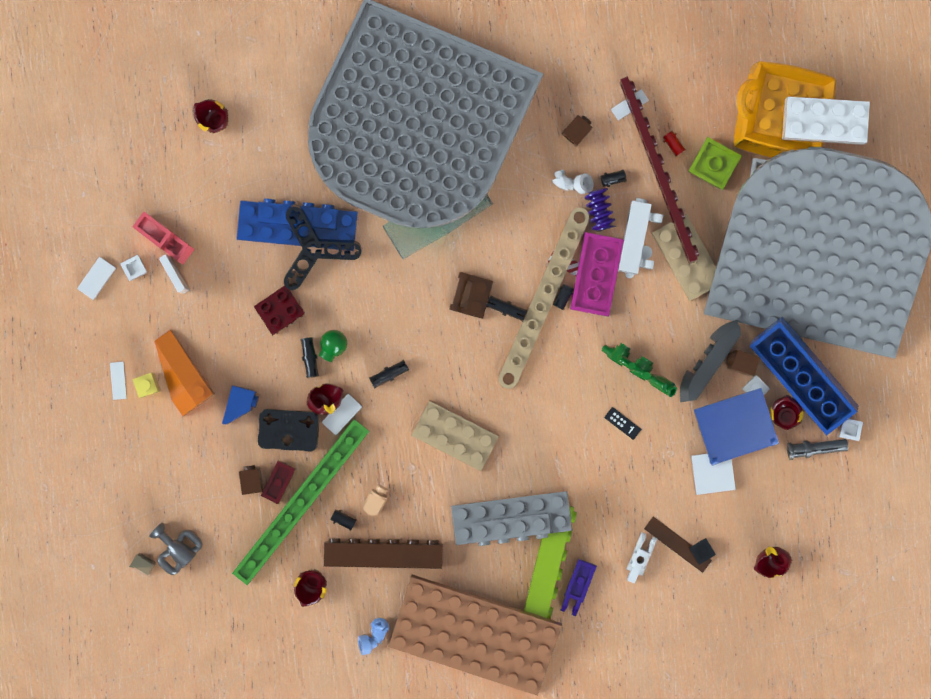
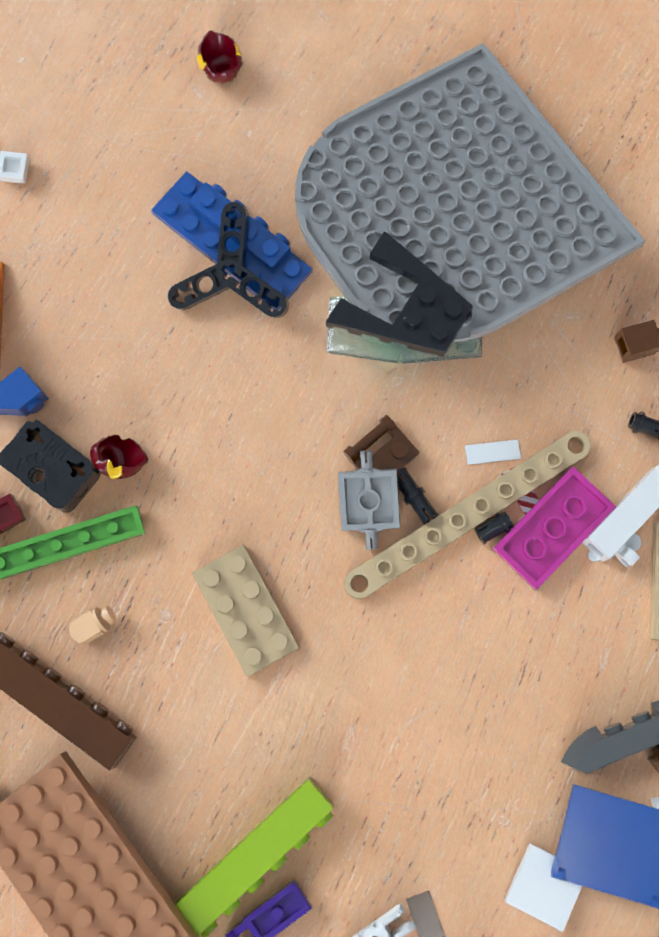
camera: 35 degrees right, 10 degrees down
(163, 238) = (70, 157): coral slope -> none
(174, 274) = (49, 196): white tile -> none
(279, 310) = (141, 320): dark red hinge -> none
(309, 357) = (137, 397): black pin -> none
(332, 344) = (174, 400): green piece -> none
(342, 415) = (128, 491): white tile -> none
(343, 519) = (35, 621): black pin -> none
(389, 374) = (217, 479): black pin -> none
(450, 206) = (428, 318): none -> black wing
(483, 328) = (369, 499): none -> light grey plate
(512, 519) = (244, 768): light grey plate -> none
(534, 251) = (492, 452): none -> white sticker
(582, 183) = (606, 405): white arm -> none
(599, 210) = (606, 451): dark purple piece -> none
(622, 423) = (467, 738): black sticker -> none
(640, 368) = (540, 684): green plant -> none

